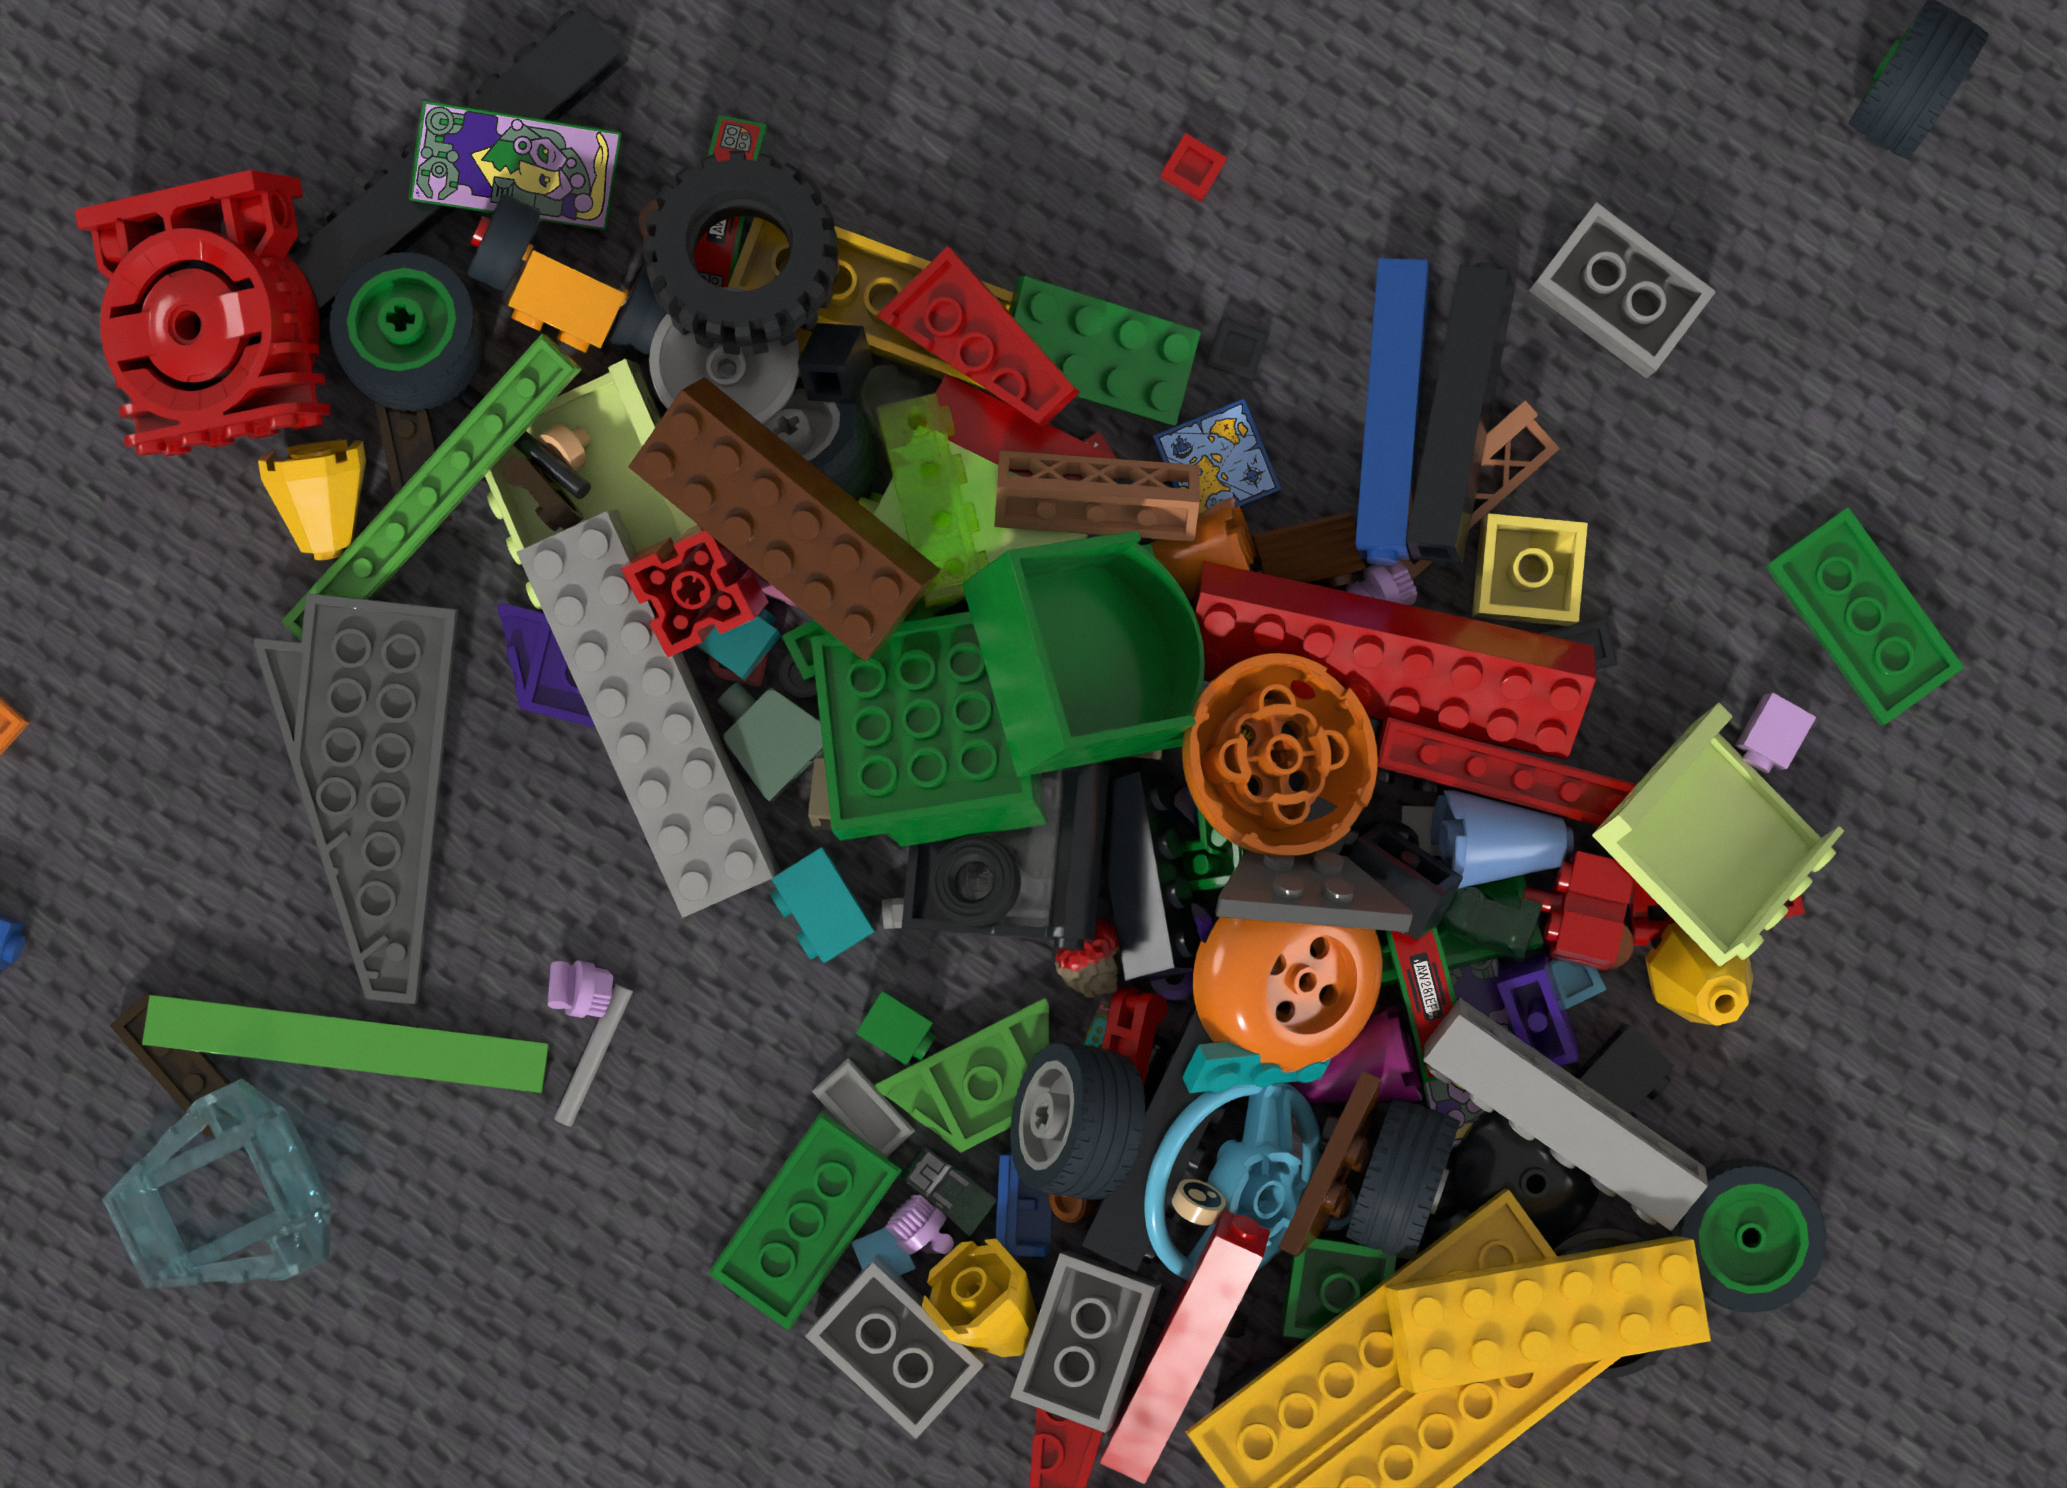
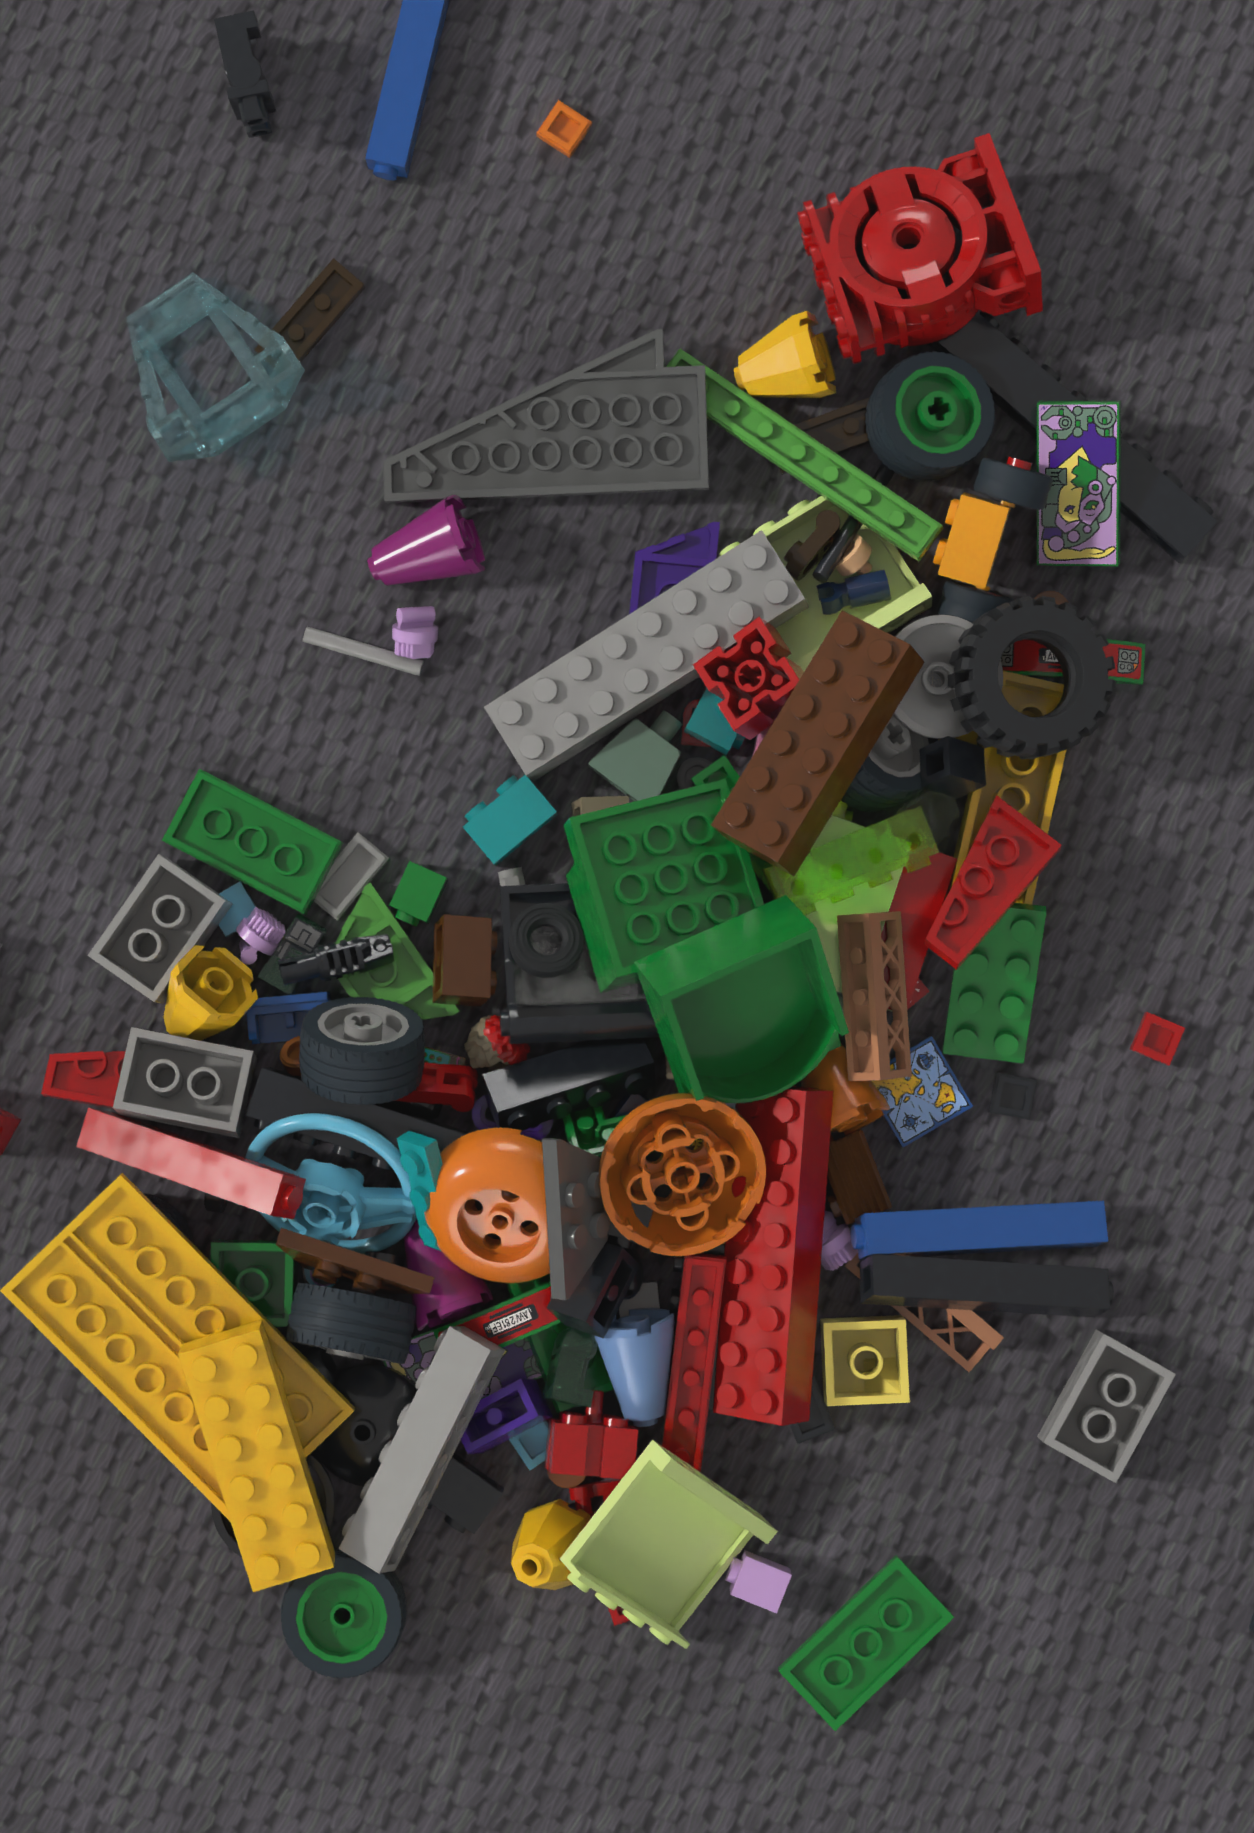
camera: 75 degrees right, 0 degrees up
(345, 1044) = (344, 450): bright green tile -> none
(479, 956) = (430, 547): none -> magenta cone
(607, 451) = (855, 591): none -> dark blue bar
(963, 1136) = (339, 959): none -> black hinge
(985, 984) = (463, 960): none -> reddish brown brick
(1198, 1202) = (308, 1157): tan tile -> none

